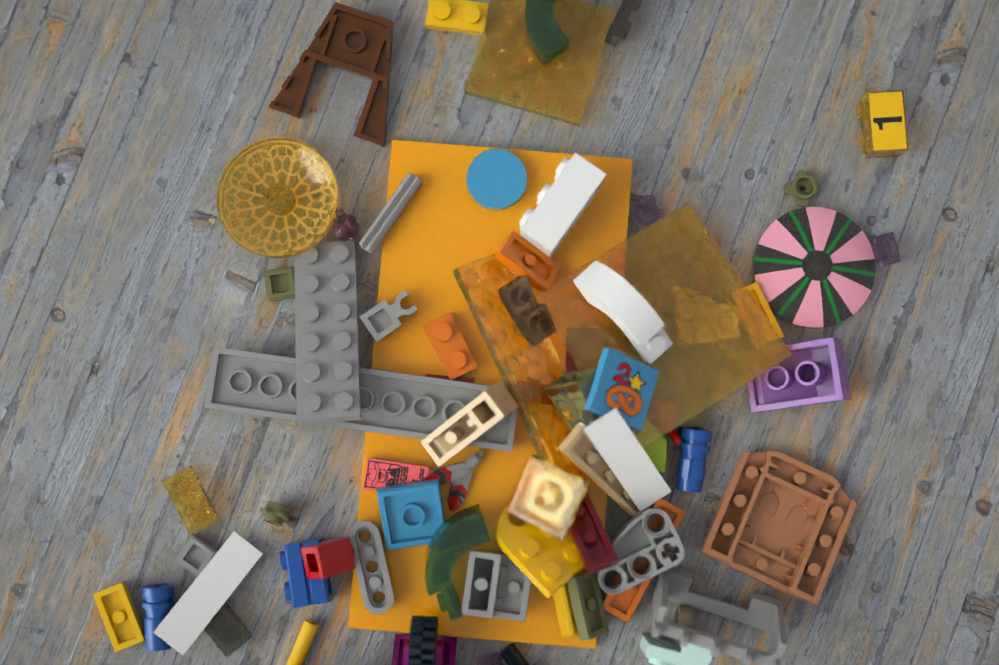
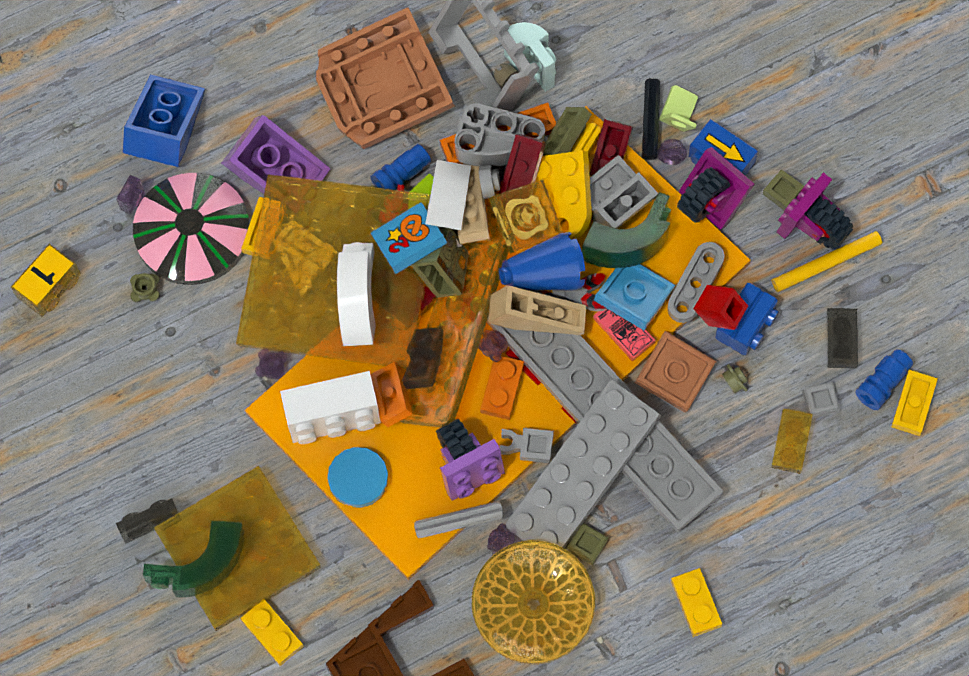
camera: 140 degrees left, 15 degrees down
(161, 309) = (696, 602): none -> yellow plate
(208, 593) = (832, 362): white sticker -> none
(328, 478) = (675, 372): none -> nougat tile
(422, 257) = (467, 461): none -> medium lavender plate
(480, 375) = (493, 344): none -> plate
(496, 468) = (546, 266): none -> blue cone
(541, 627) = (611, 143): none -> dark red slope
(609, 505) = (489, 181): none -> light grey plate
(922, 334) = (162, 120): none -> blue slope

